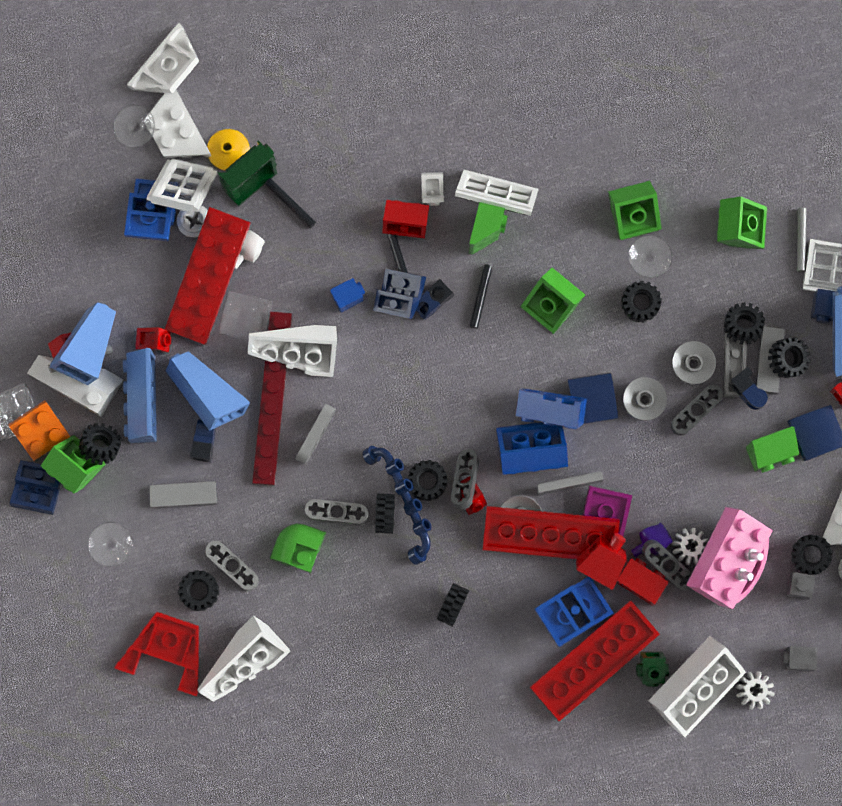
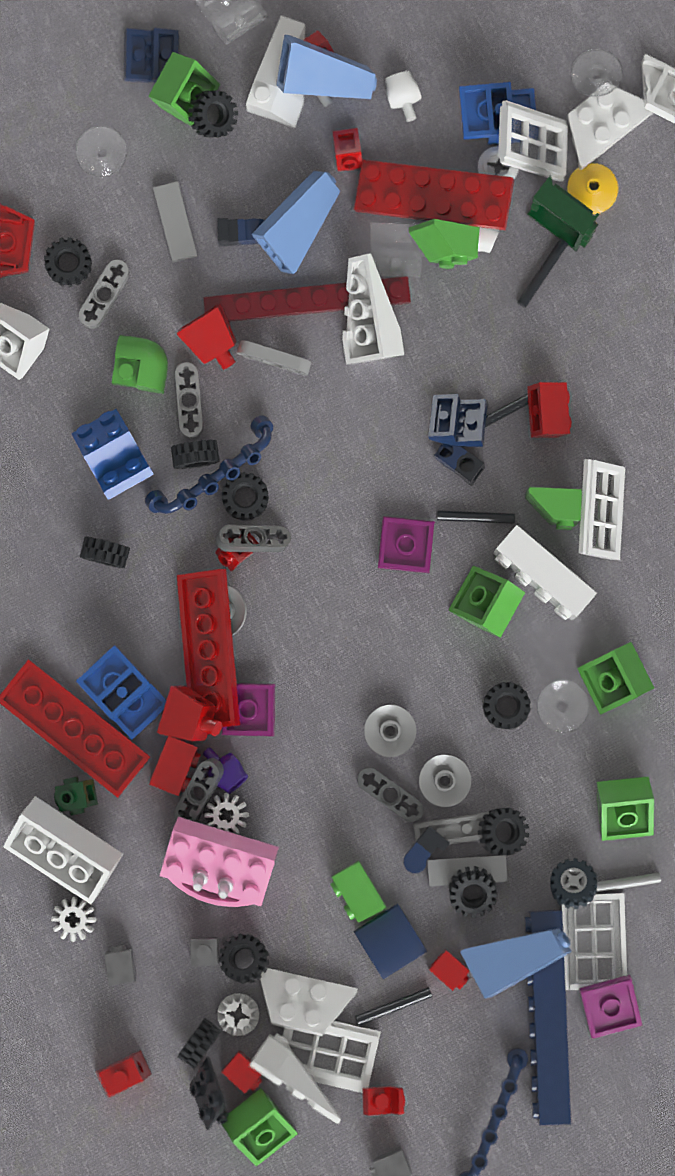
camera: 75 degrees right, 5 degrees up
(39, 430) = (215, 43): orange plate -> none
(115, 285) = (402, 93): none -> white piece
(140, 396) = (277, 149): medium blue slope -> none
(251, 271) = (446, 242): none -> bright green slope
(288, 482) = (210, 337): none -> red torso
(347, 294) = (445, 361): blue brick -> none
(370, 582) = (112, 453): none -> blue bracket
(432, 188) = (592, 434): white bracket -> none
(493, 356) = (406, 544): none -> magenta plate
(531, 448) = (307, 609): blue slope -> none
(539, 248) = (544, 573): none -> white brick
(551, 408) = (355, 622): blue wedge -> none
(569, 483) = (273, 661): light grey tile -> none
(600, 396) = (379, 670): dark blue slope -> none
(791, 270) = (577, 875): none -> black wheel

